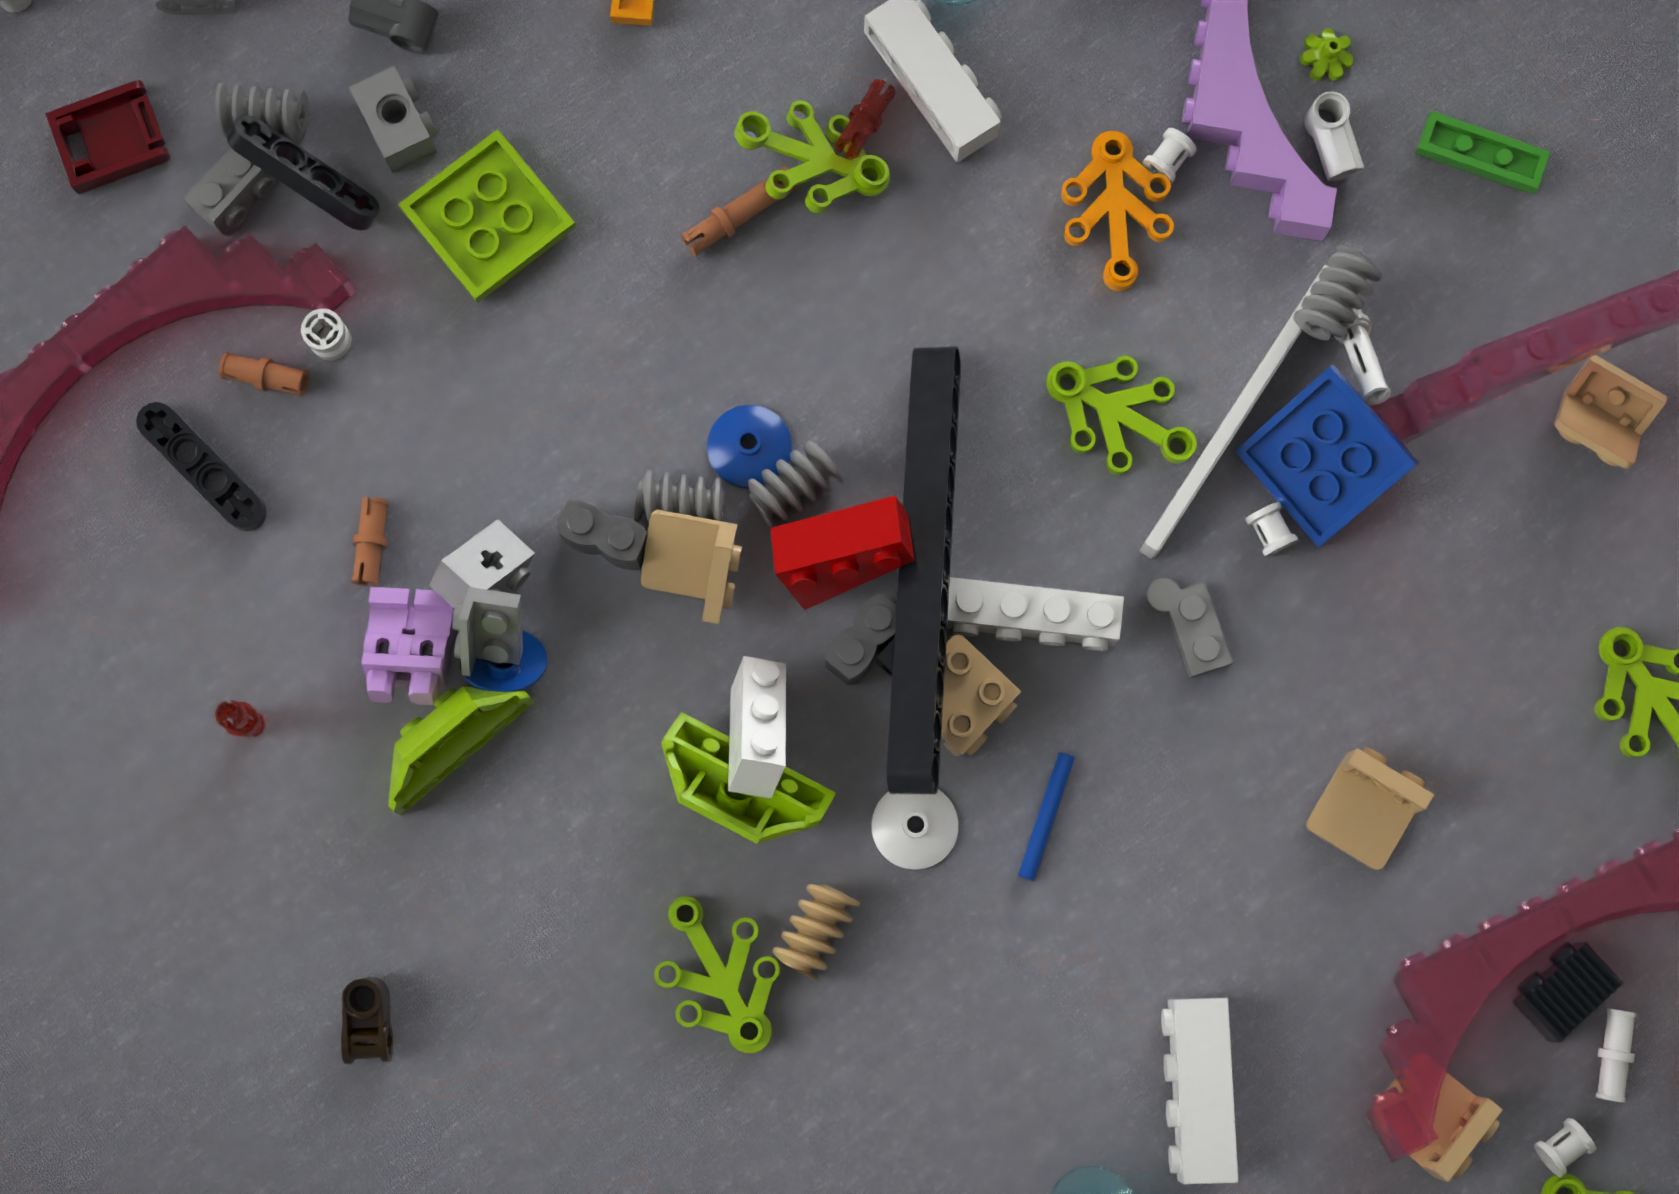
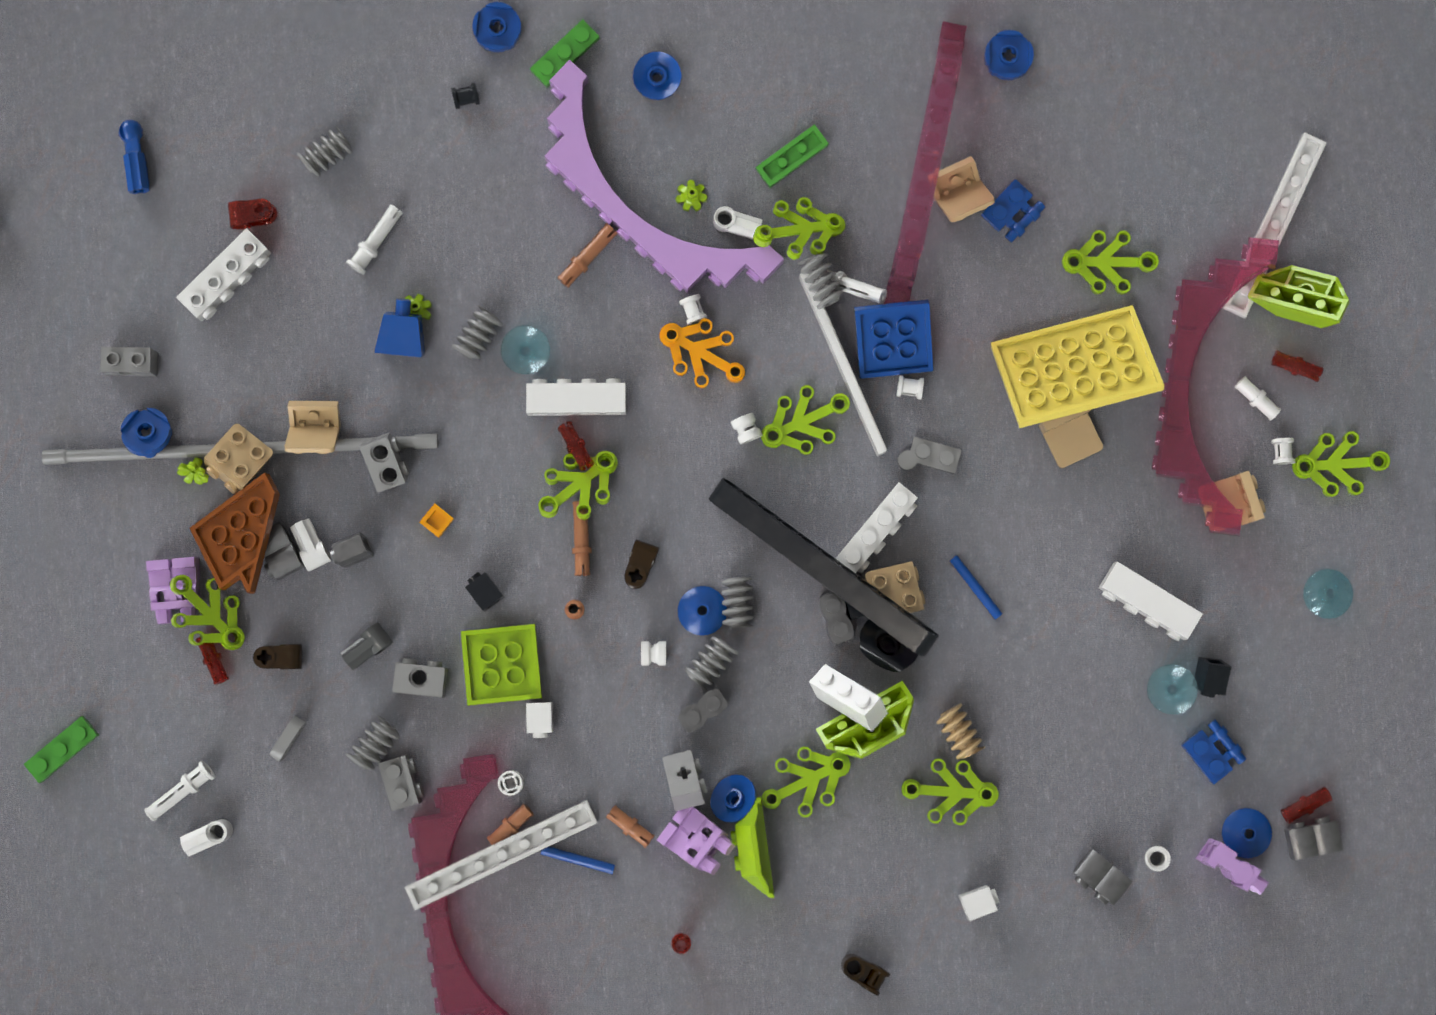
camera: 55 degrees left, 5 degrees up
(117, 133) = (334, 824): dark red container -> none
(198, 469) = (536, 884): black beam -> none
(211, 383) = (500, 855): none -> white tile
(252, 140) = (423, 745): black beam -> none
(276, 500) = (578, 859): none -> blue bar
(442, 313) = (539, 719): none -> white brick
(488, 628) = (717, 795): light grey bracket -> none
(574, 124) = (484, 591): none -> black brick
(579, 1125) = (979, 902): none -> white brick
(604, 755) = (809, 779): none -> lime plant
(629, 259) = (578, 614): none -> nougat pin
(643, 416) = (653, 653): none -> white wheel
(692, 559) = (744, 675): tan bracket -> none
(761, 311) = (642, 560): none -> dark brown piece
(841, 549) = (790, 601): red wedge -> none
(863, 737) = (884, 649): none -> black hat
(912, 849) = (950, 662): white dish -> none
(1051, 337) = (743, 423): none -> white wheel
(1422, 264) = (802, 228): none -> lime plant
(1474, 749) = (1076, 366): none -> light yellow plate
(1566, 990) = (1214, 400): black brick -> none
(1634, 501) = (1008, 205): none -> blue plate

